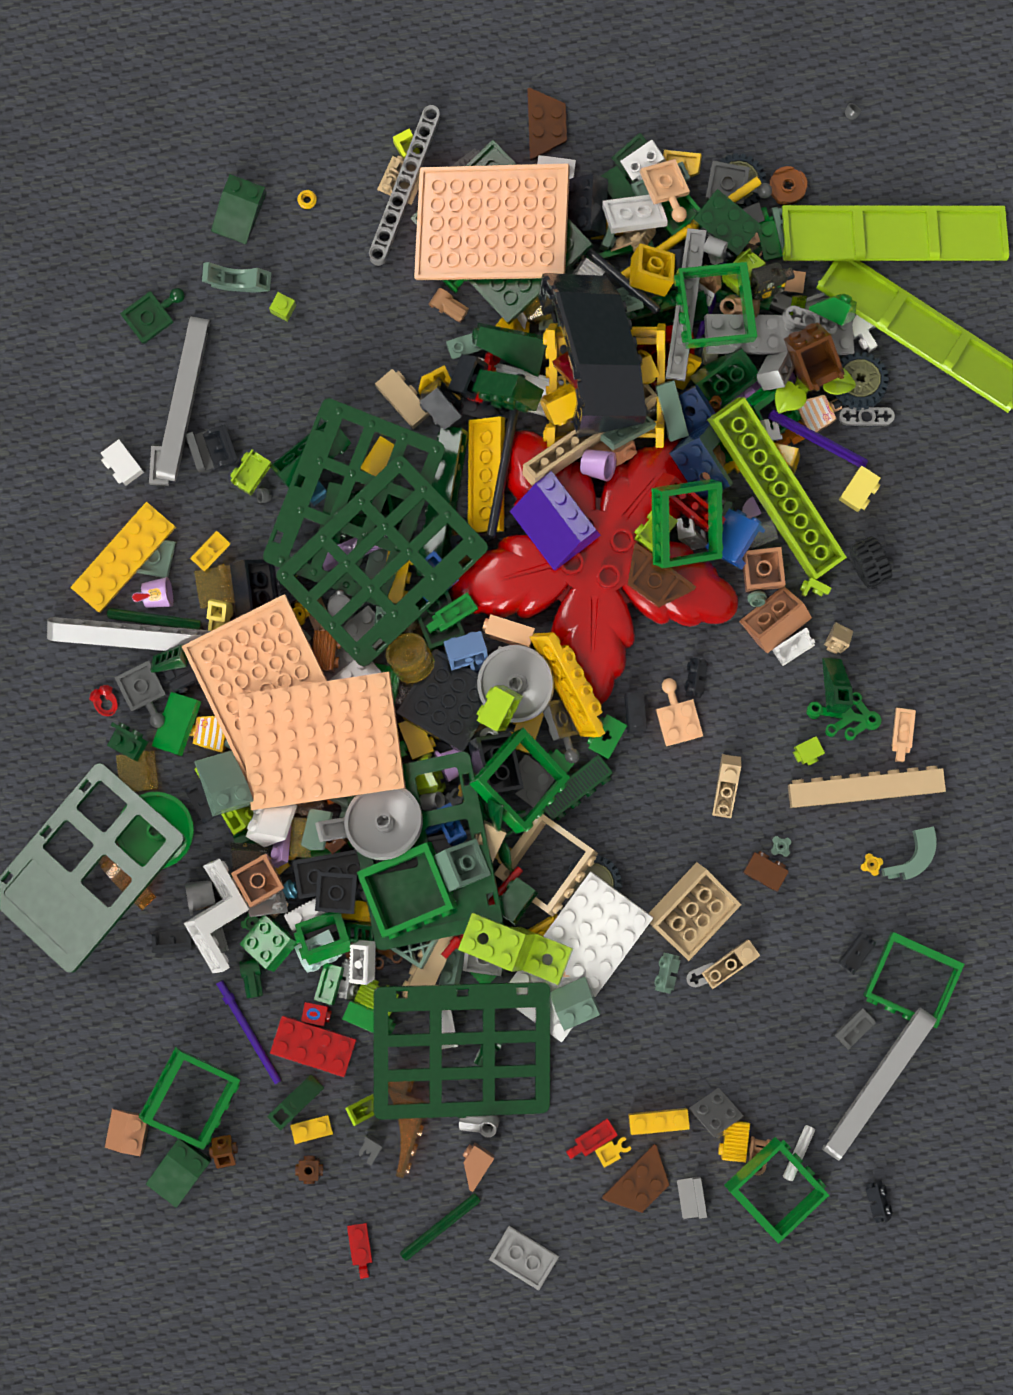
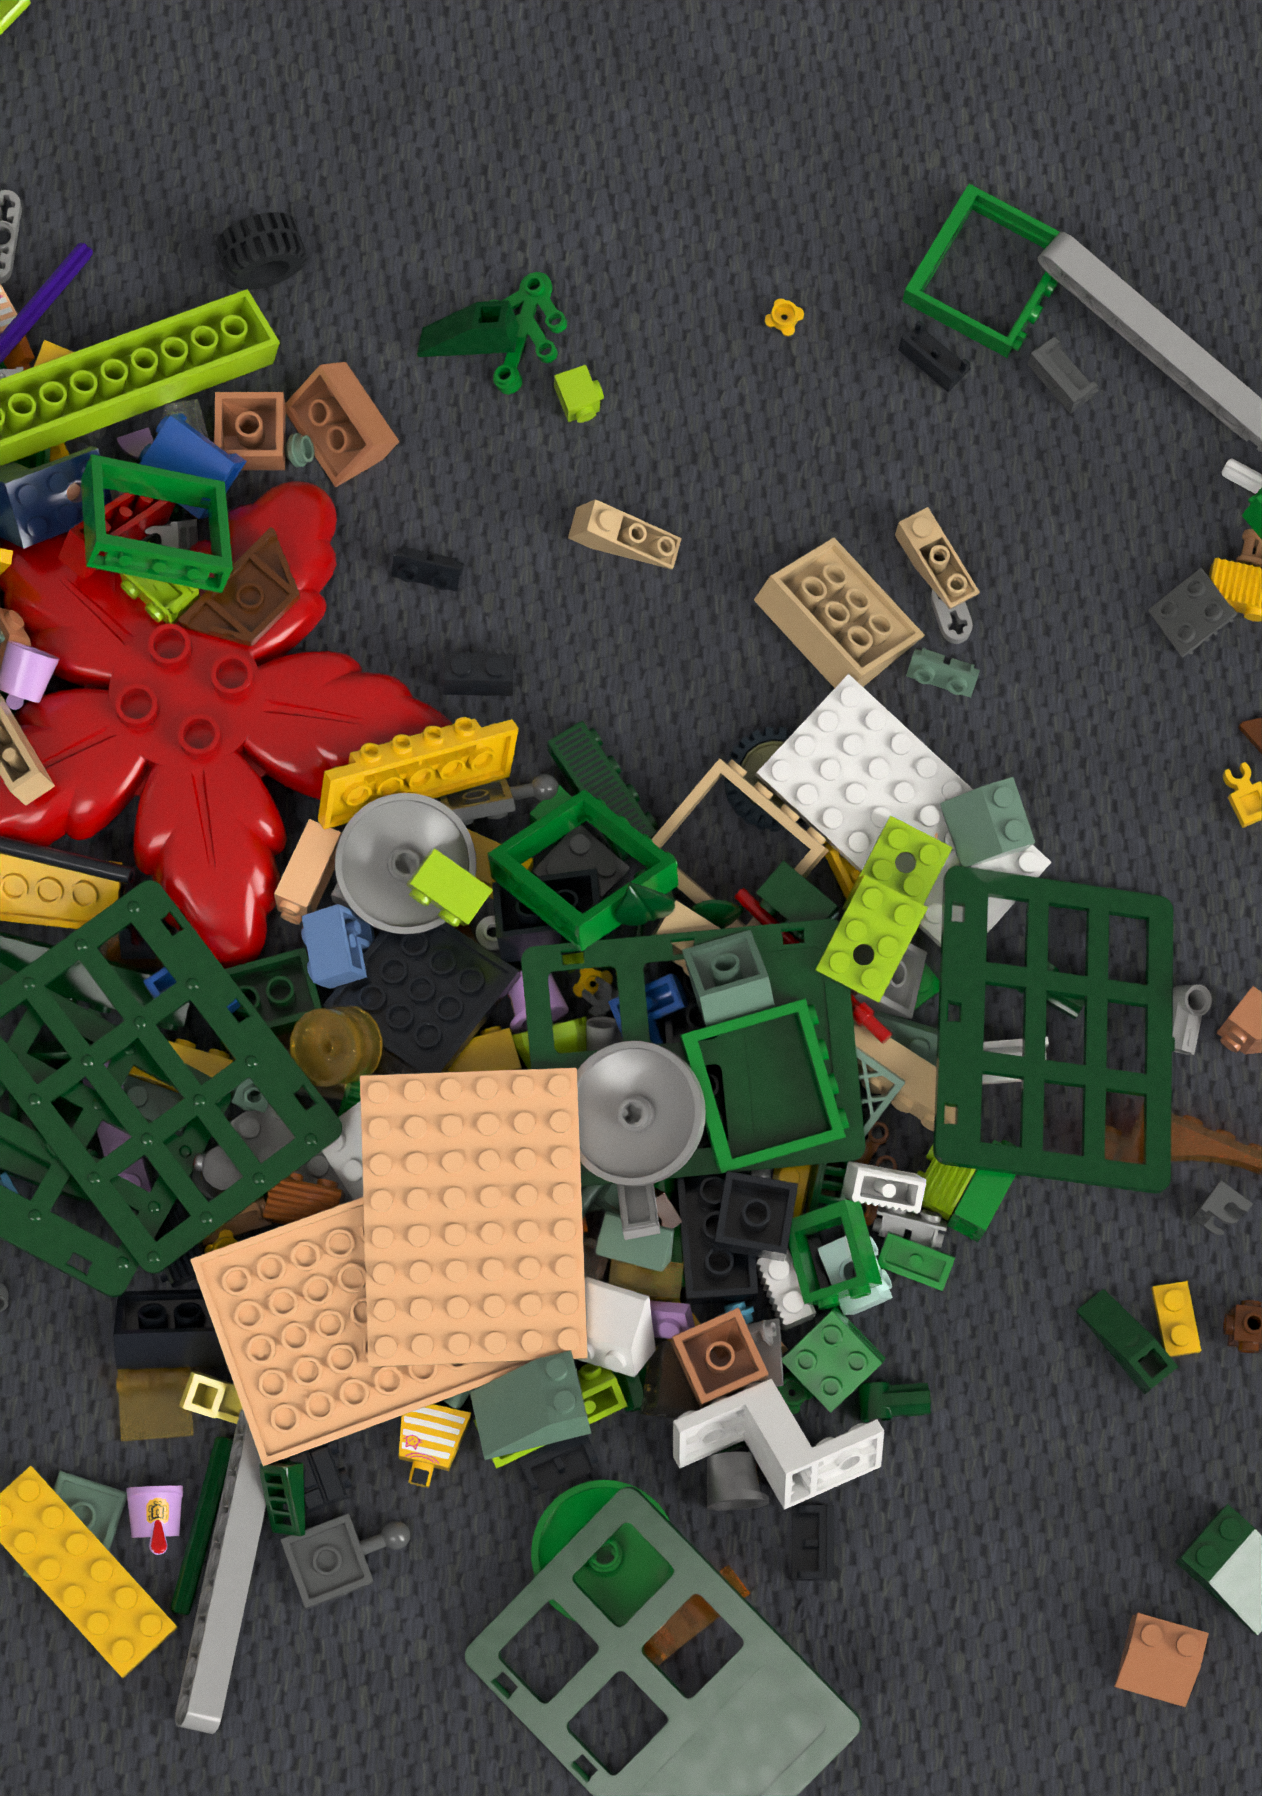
camera: 90 degrees left, 10 degrees down
(107, 692) = (338, 1650): red piece -> none
(126, 742) = (431, 1593): dark green bracket -> none
(140, 774) = (486, 1580): clear yellow hinge -> none
(163, 1084) = (1081, 1570): green window -> none
(179, 720) = (405, 1491): green tile -> none
(210, 551) = (86, 1405): yellow hinge -> none
(222, 1147) = (1207, 1479): reddish brown brick -> none
(229, 999) = (928, 1447): dark purple bar -> none
(313, 1046) = (1027, 1298): red brick -> none
(316, 1014) = (968, 1289): red brick -> none
(361, 1110) = (1147, 1221): lime slope -> none
(452, 613) = (264, 962): green hinge -> none
(554, 521) = (120, 754): dark purple slope -> none
(593, 1139) = (1225, 827): red plate -> none
(615, 730) = (534, 727): green brick -> none
(658, 1121) = (1201, 710): yellow brick -> none
(679, 720) = (499, 604): light nougat plate -> none
(766, 871) = (780, 488): reddish brown brick -> none
(777, 842) = (742, 468): sand green plate -> none
(794, 647) = (391, 398): white hinge -> none
(818, 587) = (291, 351): lime bracket -> none
(838, 639) = (389, 319): tan slope -> none
(859, 489) = (128, 259): light yellow brick -> none
(866, 788) = (651, 309): tan brick -> none
(903, 732) = (563, 240): light nougat hinge -> none
(924, 852) = (781, 233): sand green arch -> none

